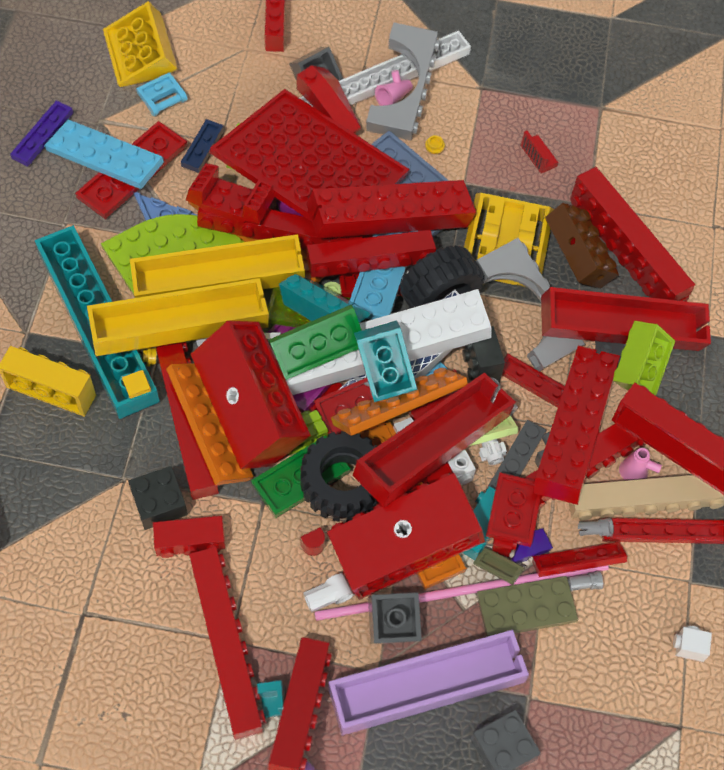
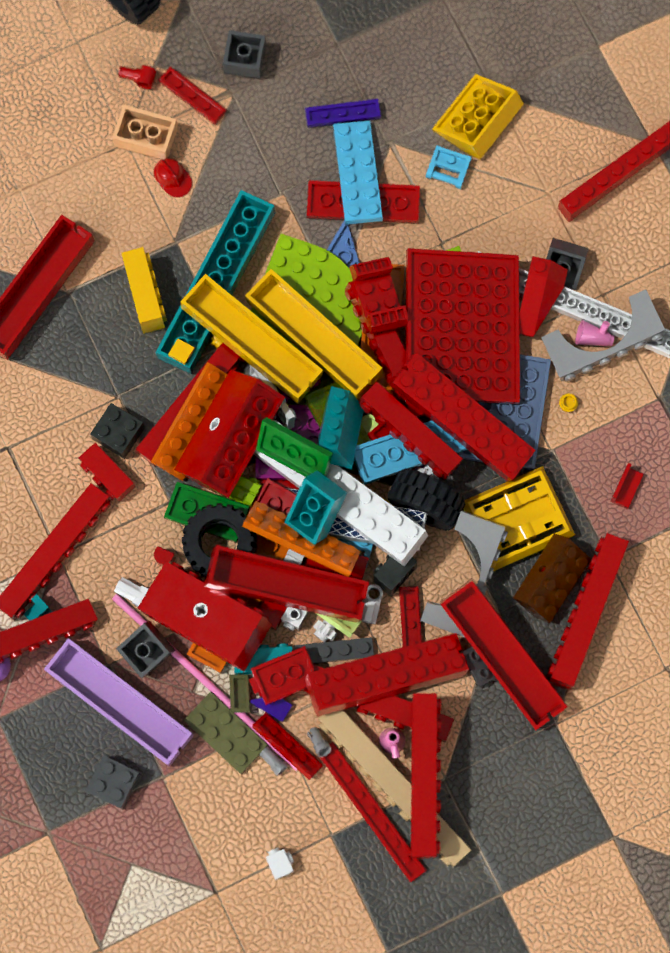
camera: 60 degrees right, 15 degrees up
(200, 147) = (425, 234): dark blue plate -> none
(644, 357) = (473, 689): lime slope -> none

